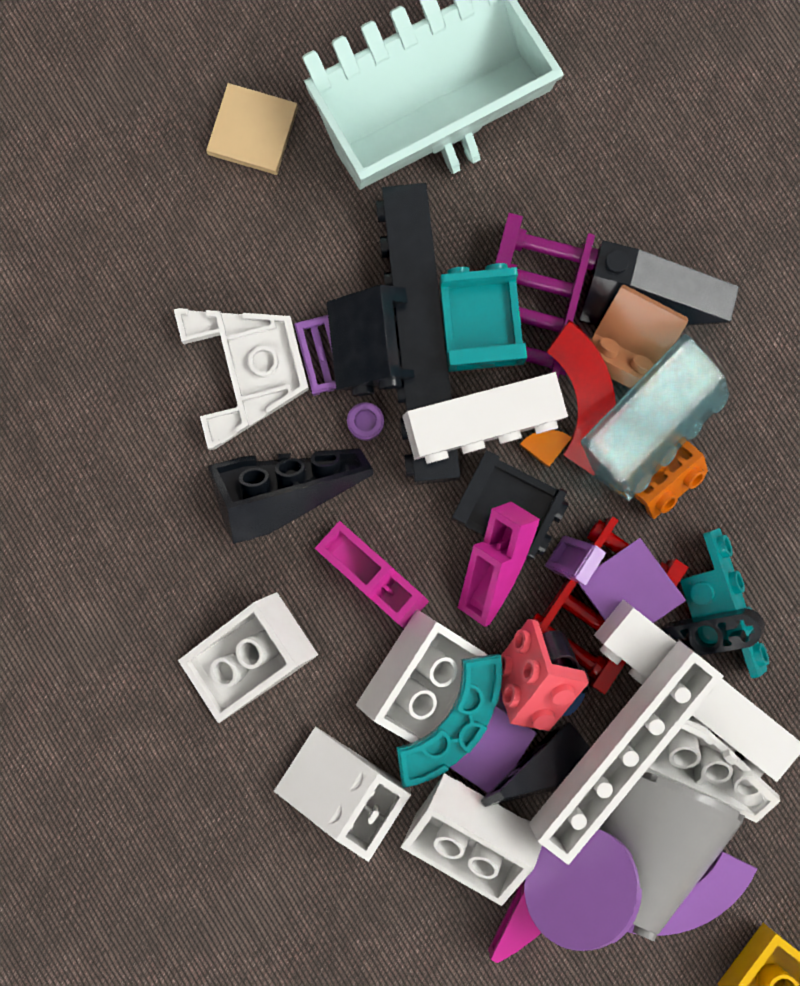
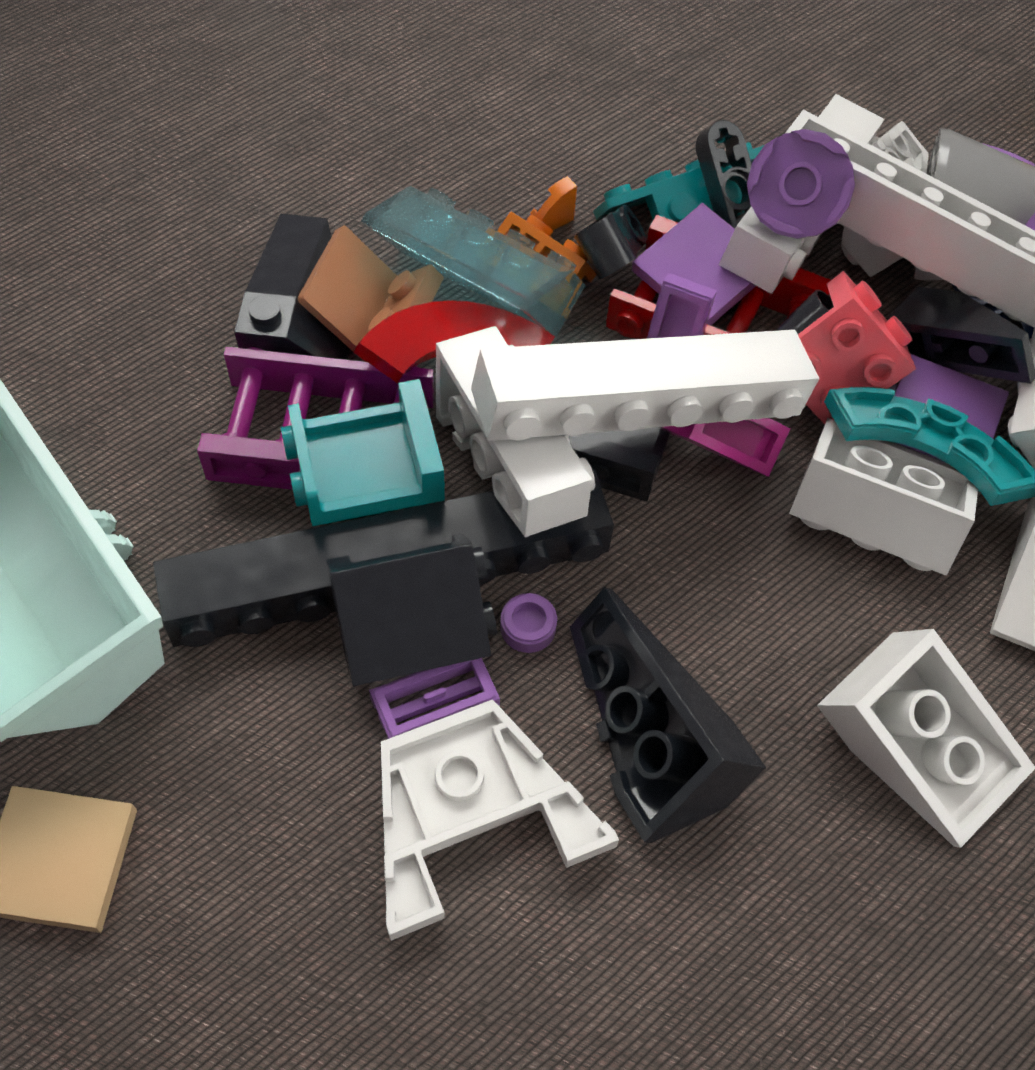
camera: 100 degrees left, 25 degrees down
(371, 574) = (754, 580): dark pink slope -> none
(491, 508) = (640, 383): none -> white brick
(651, 657) = (801, 183): none -> medium lavender tile
(665, 527) = (612, 241): none -> black piece
(718, 498) = (560, 206): none -> orange tile

